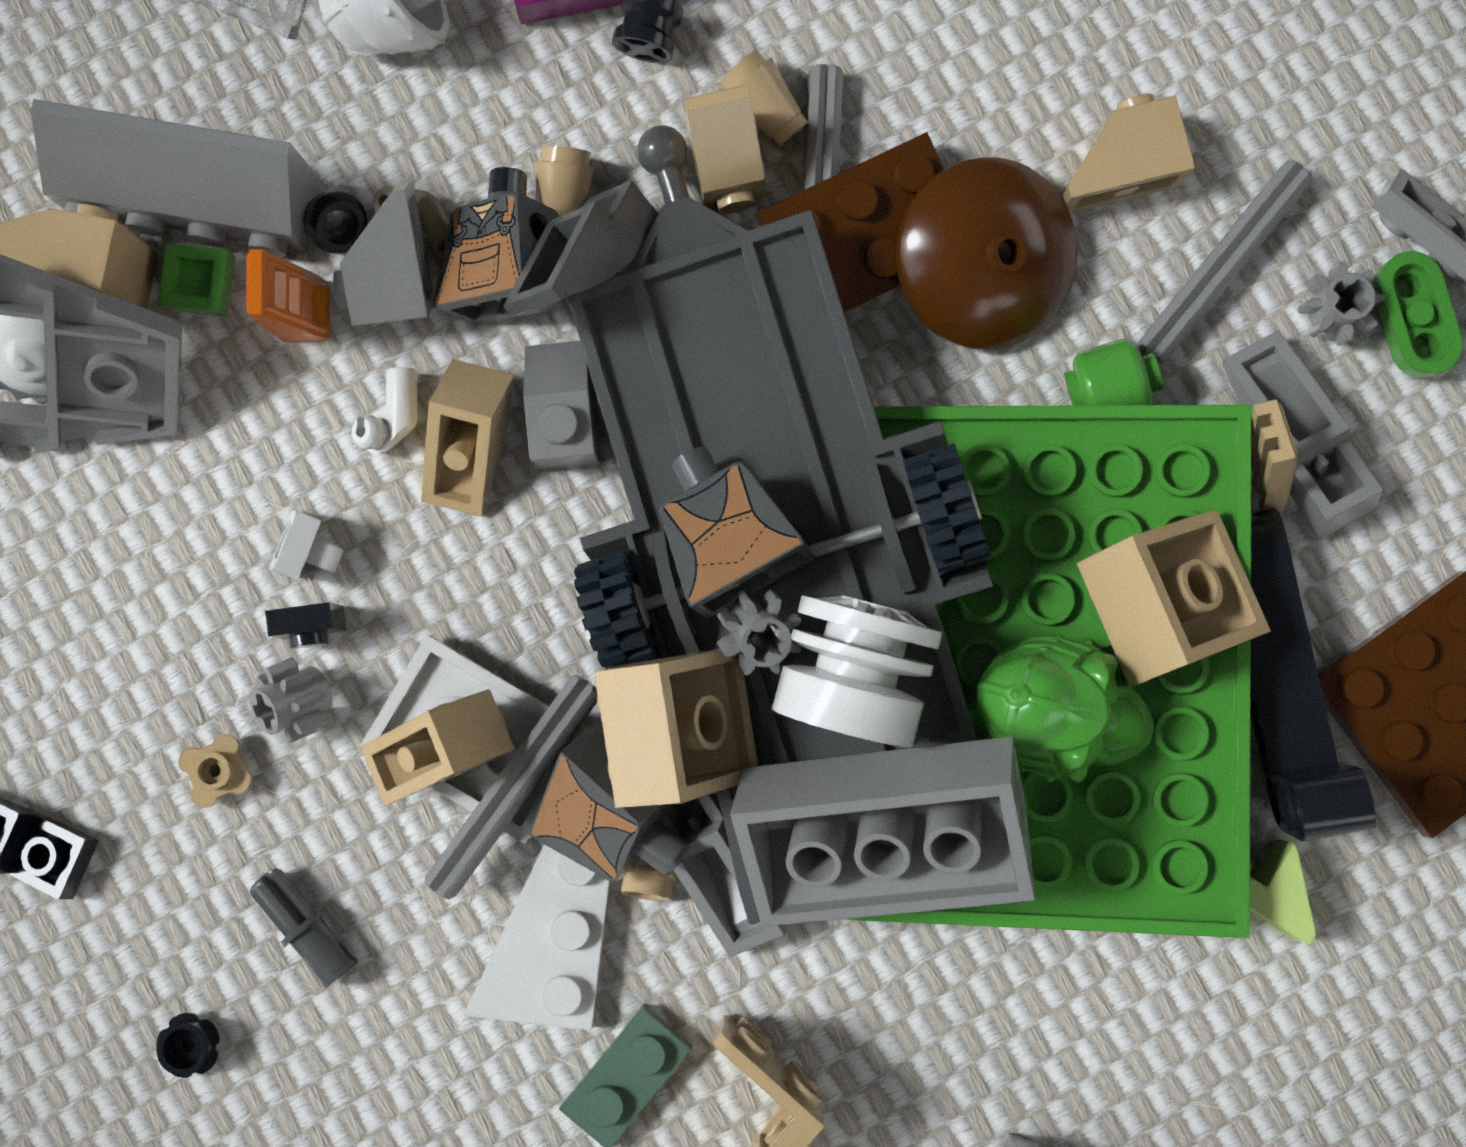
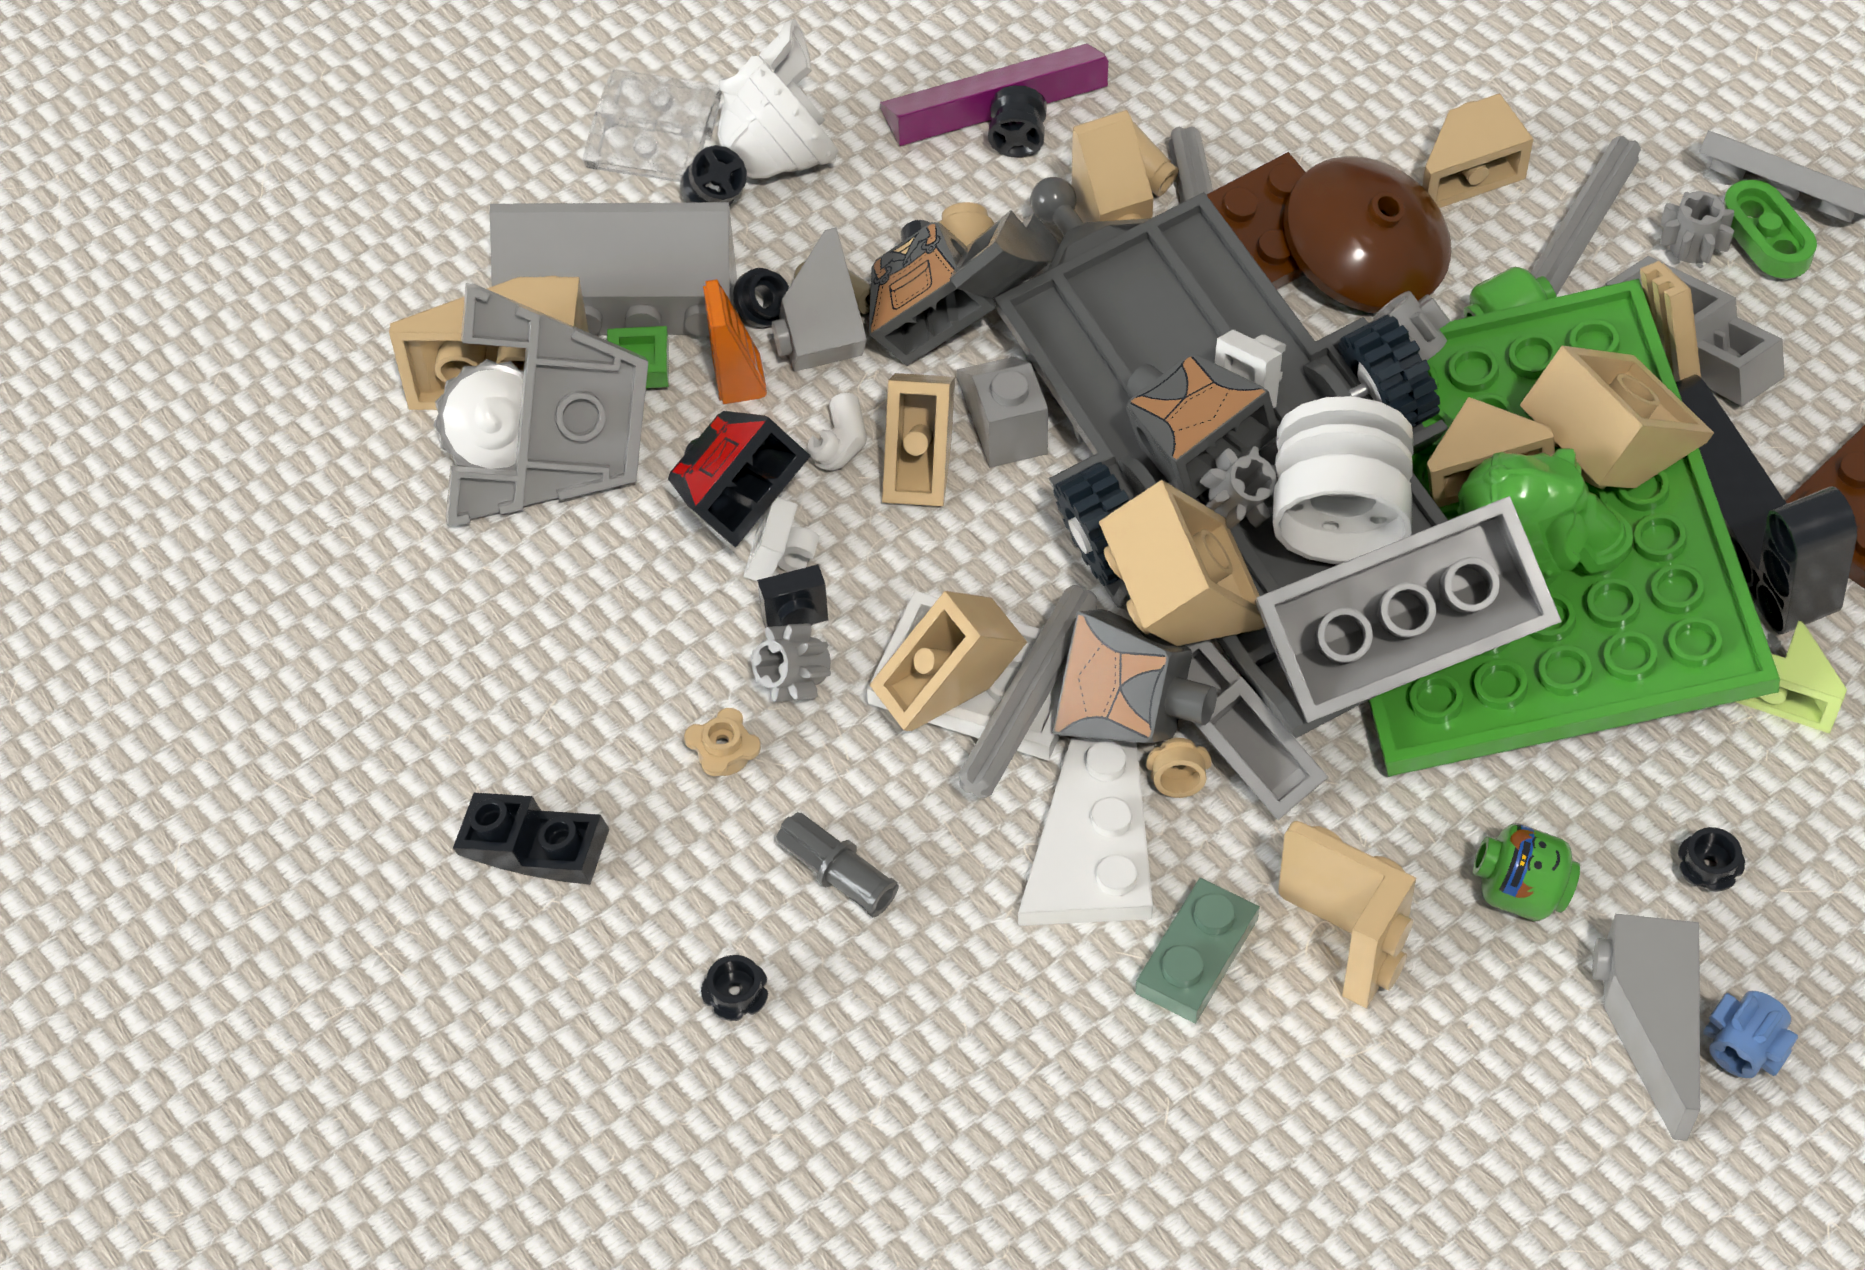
camera: 15 degrees left, 30 degrees down
(258, 475) = (736, 471): none -> black torso
(311, 66) = (715, 166): none -> black wheel
(801, 481) = (1253, 359): none -> white tile
(951, 1065) = (1526, 872): none -> bright green head
(990, 429) = (1421, 319): none -> light grey gear
(1028, 602) = (1476, 436): none -> tan slope
(1148, 1077) = (1713, 845): none -> black plate

